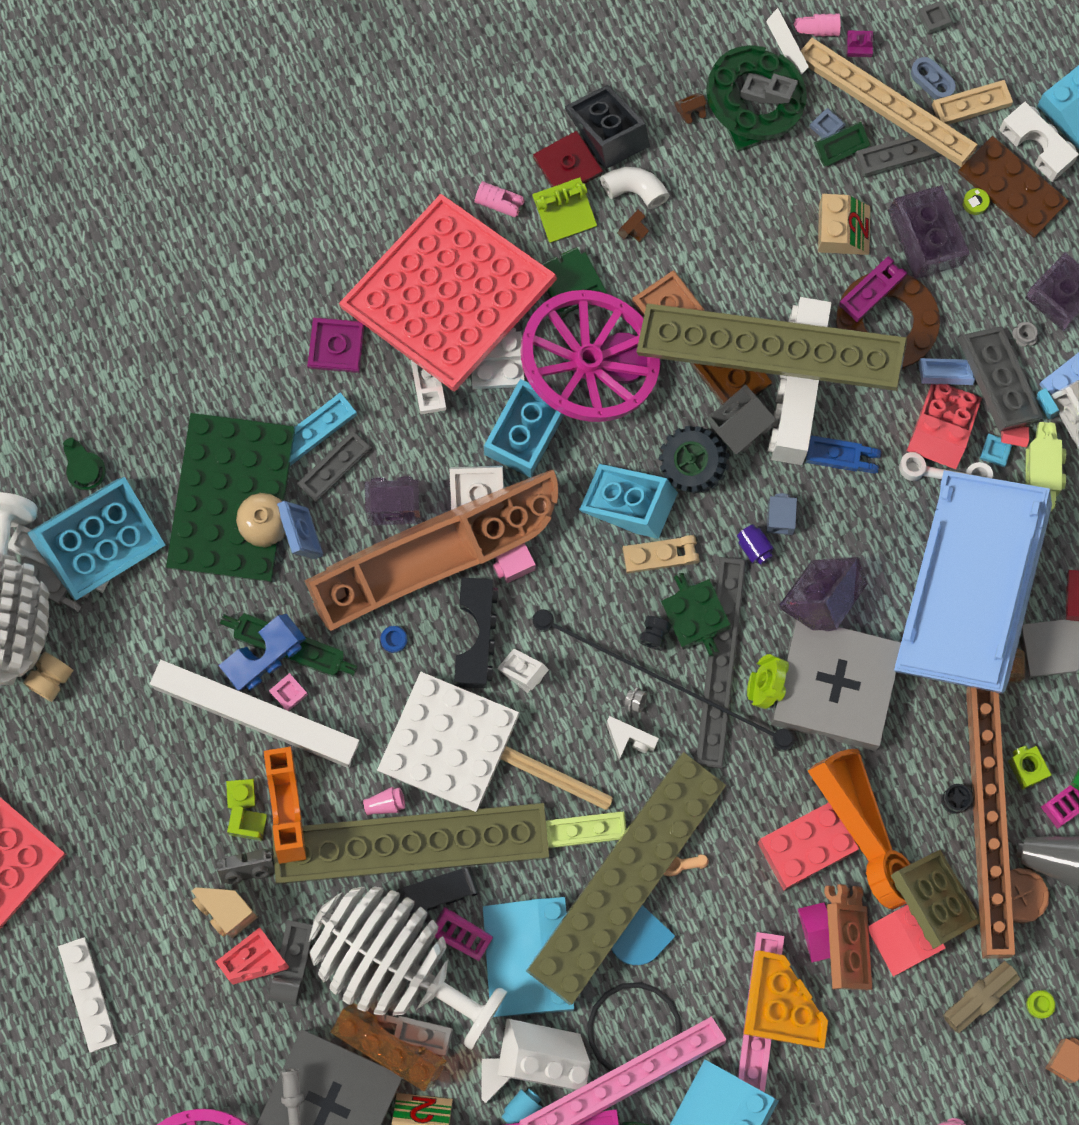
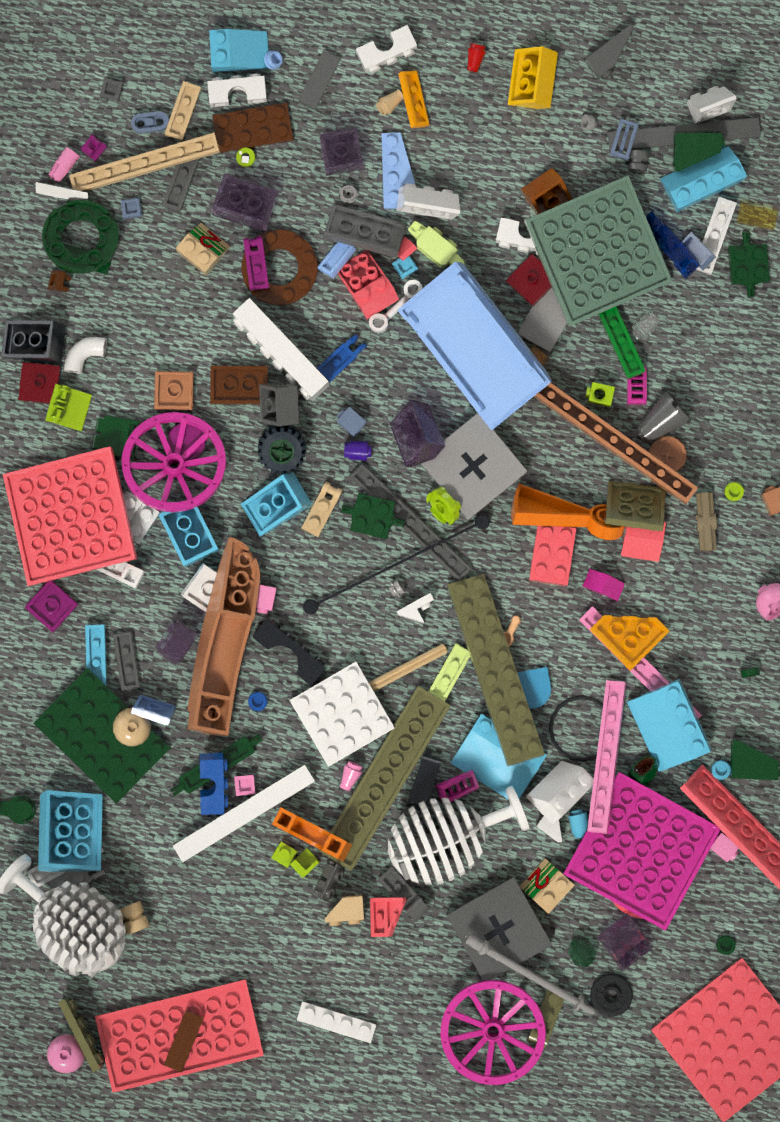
camera: 50 degrees left, 10 degrees up
(406, 1060) = (478, 880): clear orange arch -> none
(420, 1033) = (496, 852): light grey hinge -> none
(499, 199) = (27, 444): bright pink hinge -> none
(523, 670) = (332, 640): white slope -> none
(634, 227) = (110, 374): reddish brown tile -> none
(654, 633) = (366, 548): black wheel -> none
(765, 90) = (84, 228): dark grey slope -> none
(772, 346) = (250, 354): olive plate -> none
(842, 144) = (150, 209): dark green tile -> none
(848, 939) = (620, 571): nougat tile -> none
(959, 795) = (590, 447): black wheel -> none
(1047, 404) = (400, 215): medium azure tile -> none

